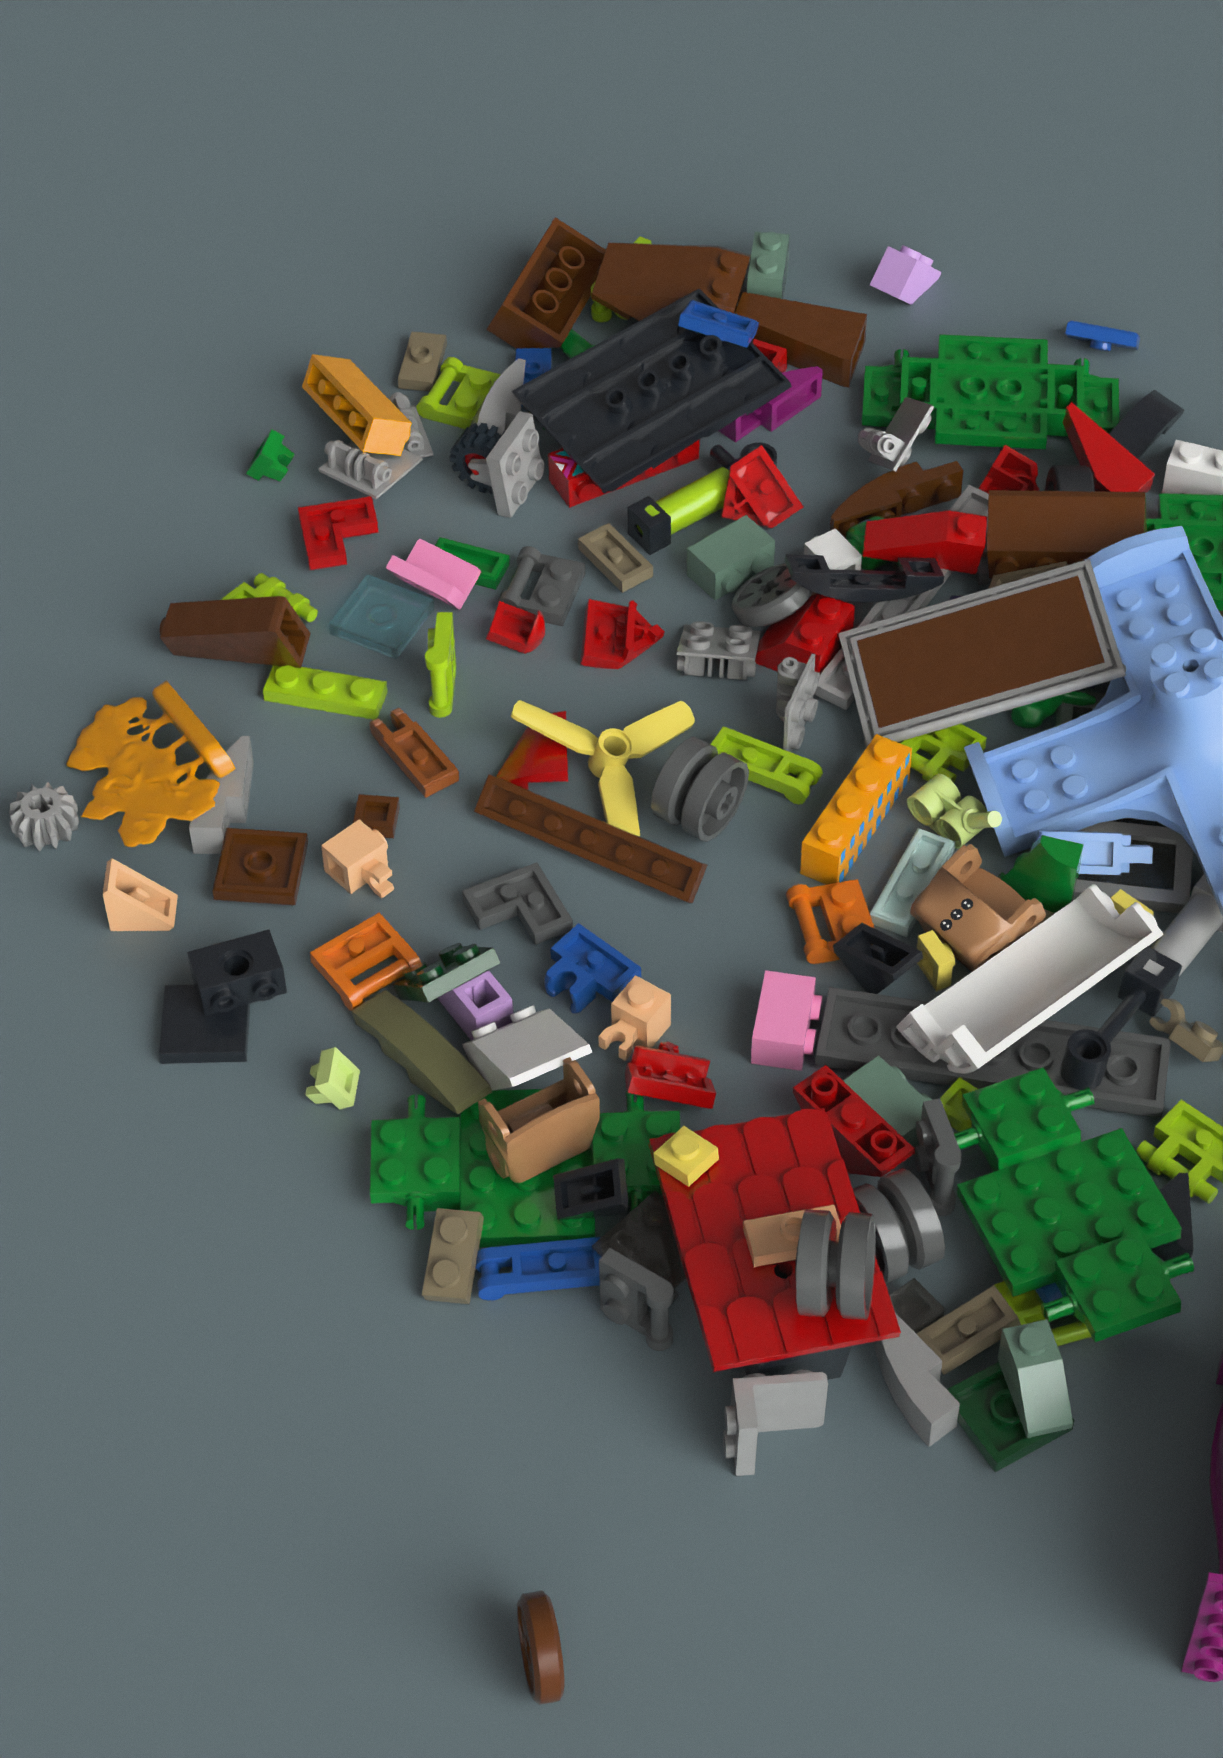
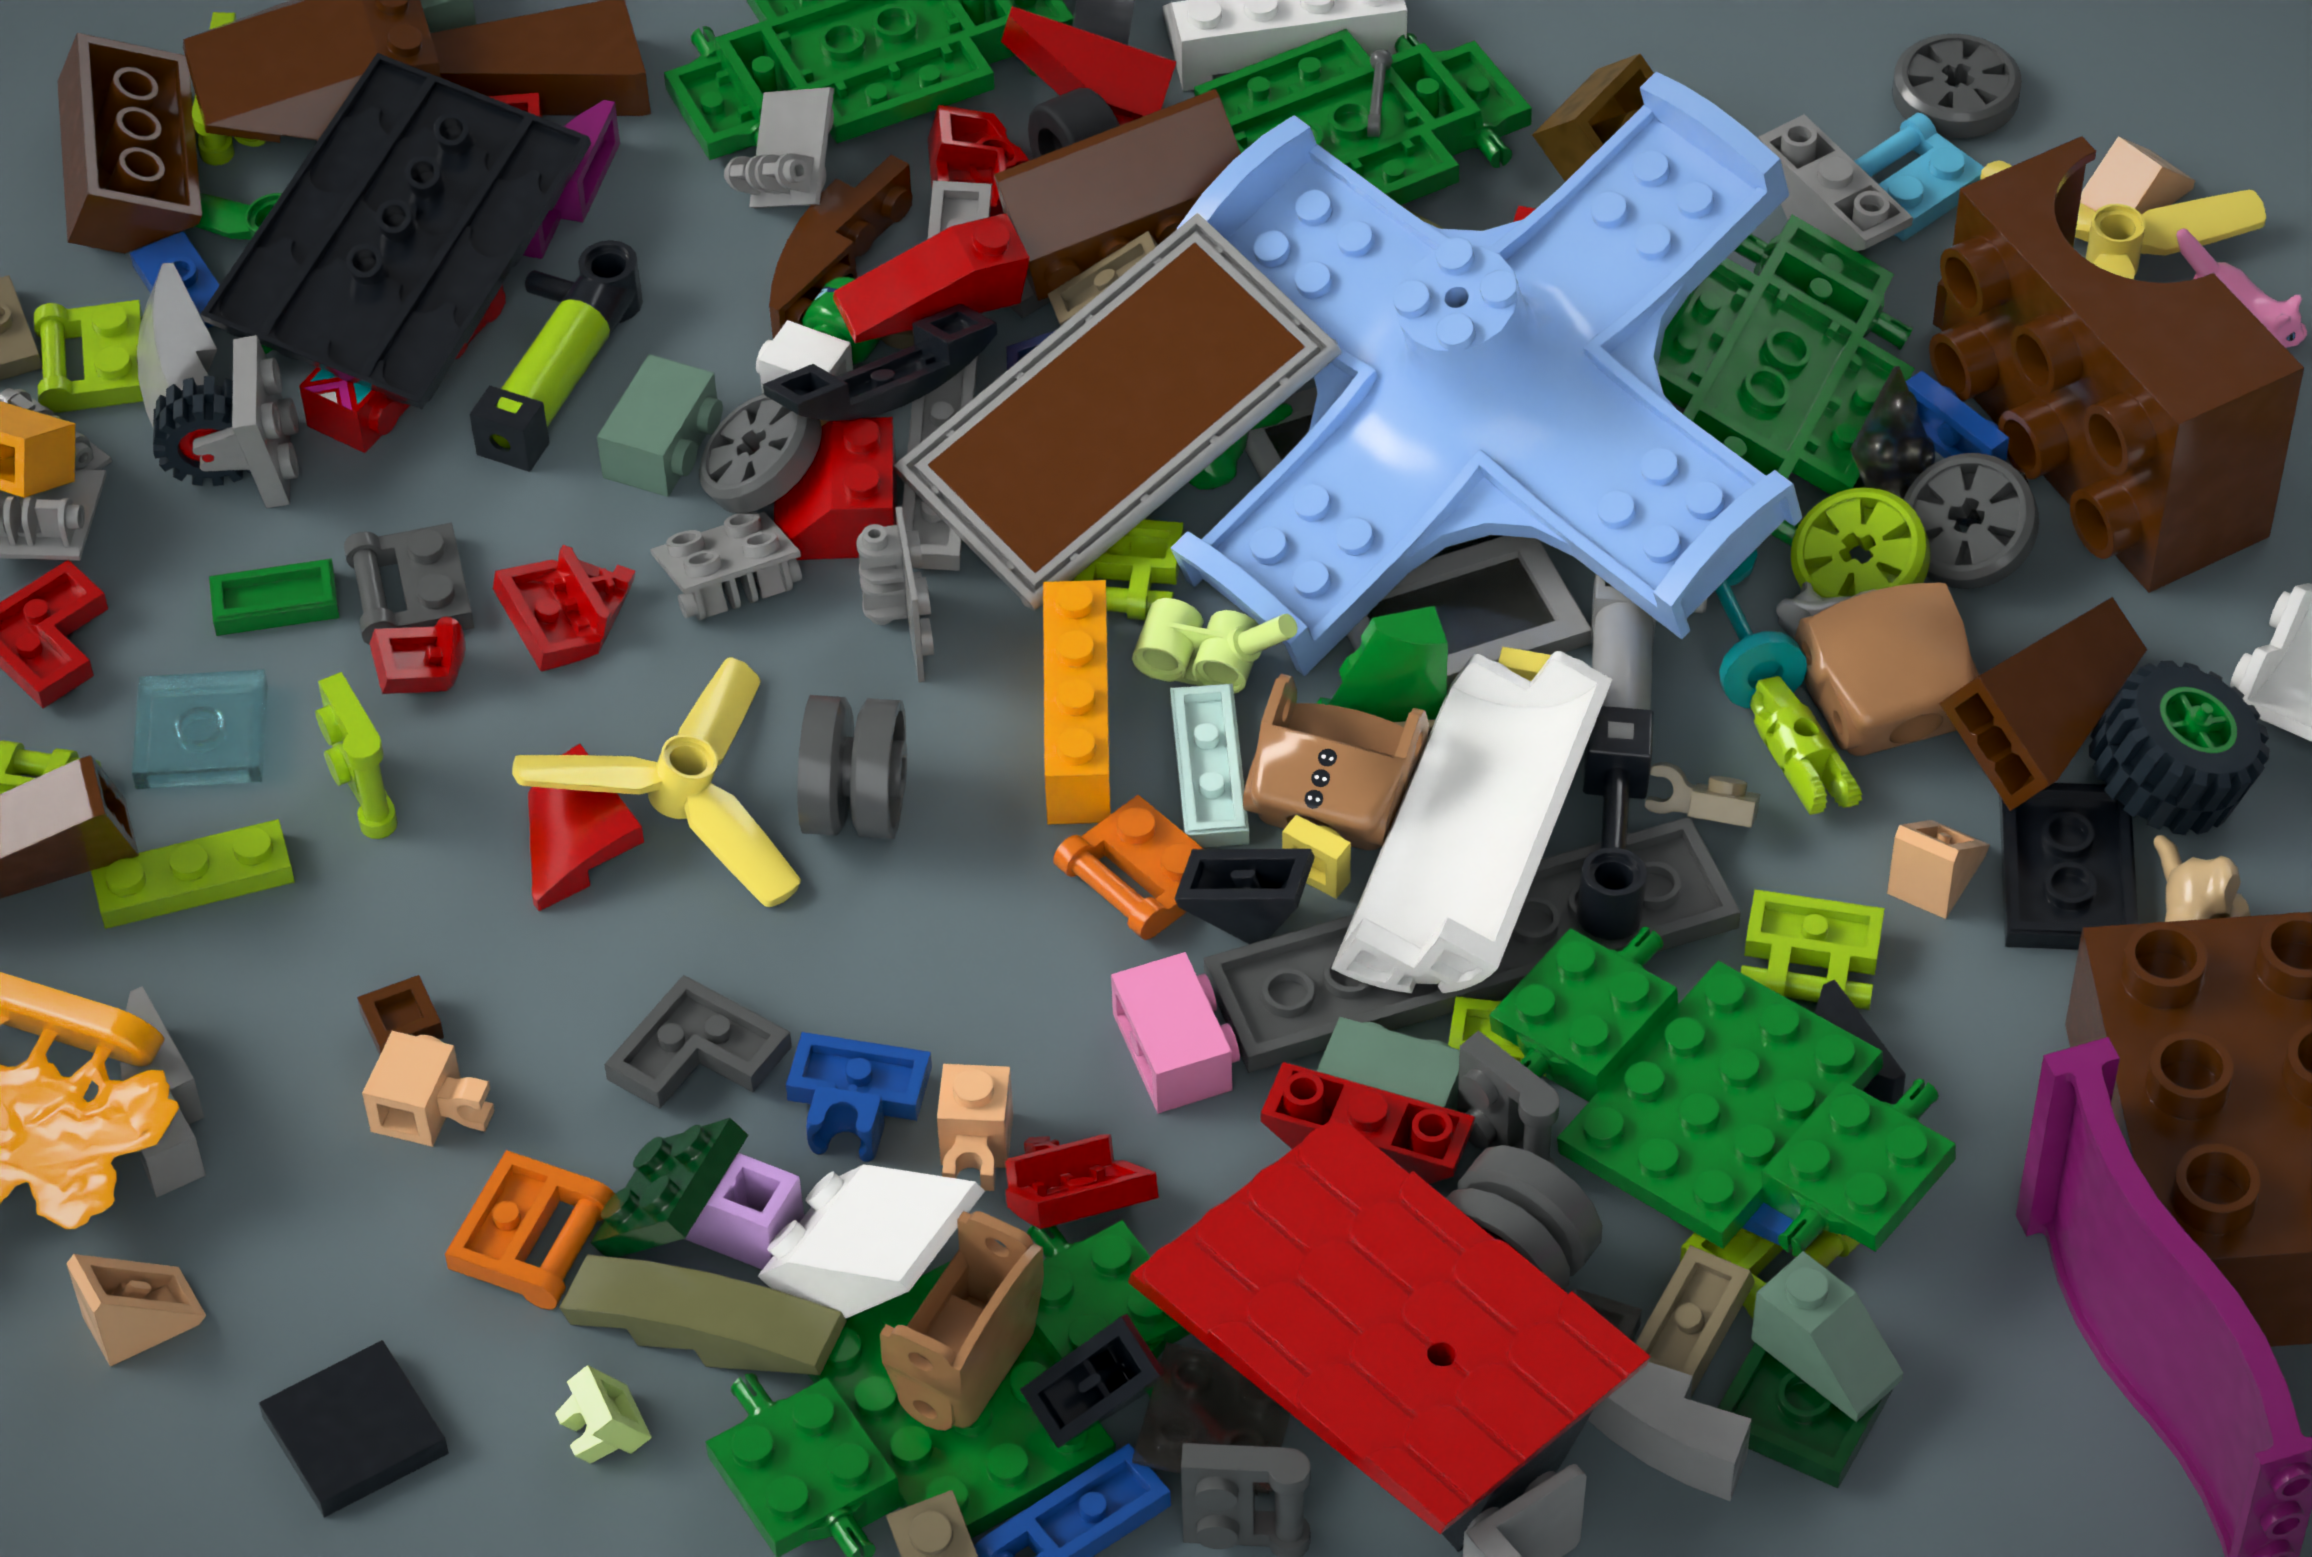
camera: 30 degrees left, 0 degrees up
(237, 972) = (377, 1296): black brick -> none
(260, 866) = (279, 1167): reddish brown plate -> none
(415, 753) = (391, 901): dark orange hinge -> none
(436, 573) = (244, 630): bright pink panel -> none
(591, 838) = (731, 907): reddish brown plate -> none
(615, 557) = (490, 495): dark tan plate -> none
(686, 1156) = (1206, 1269): light yellow plate -> none
(718, 322) = (442, 92): blue plate -> none
(759, 491) = (639, 312): red slope -> none
(771, 764) = (918, 687): lime plate -> none
(777, 1236) = (1428, 1301): light nougat plate -> none
(830, 1264) = (1533, 1305): dark grey wheel -> none
(1104, 851) = (1457, 599): light blue hinge -> none

